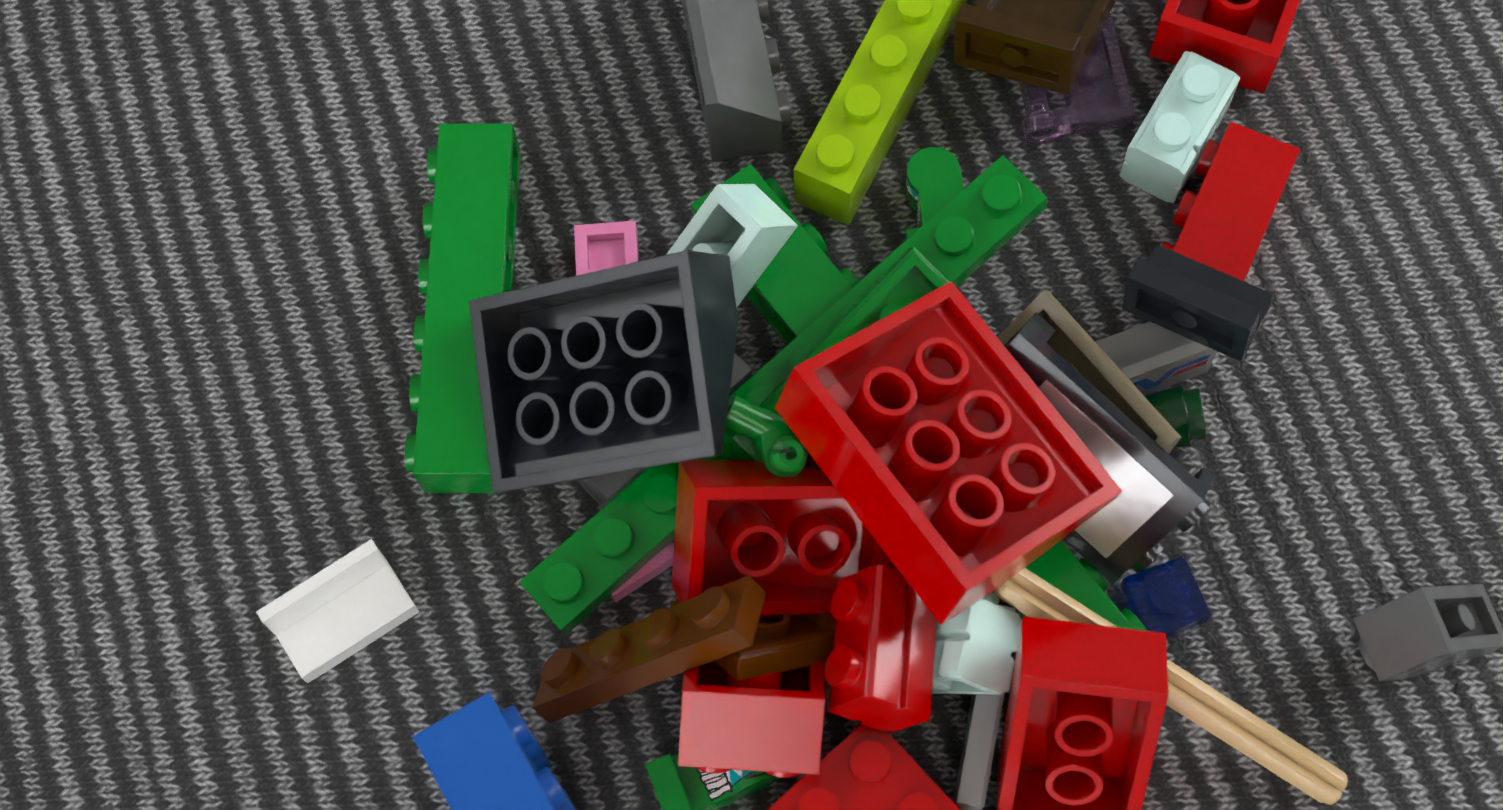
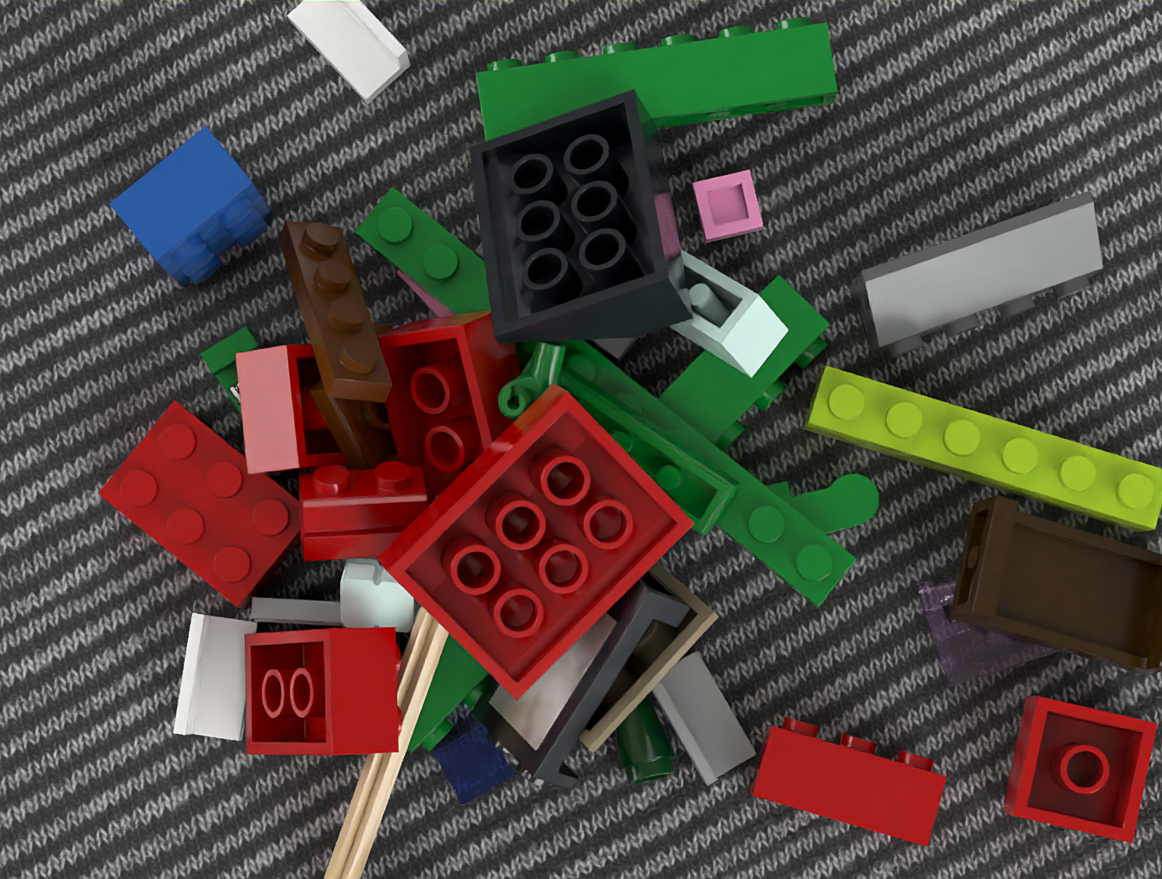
camera: 75 degrees right, 15 degrees up
(1179, 126) = (943, 730): light aqua brick -> none
(1196, 301) = (746, 759): black panel -> none

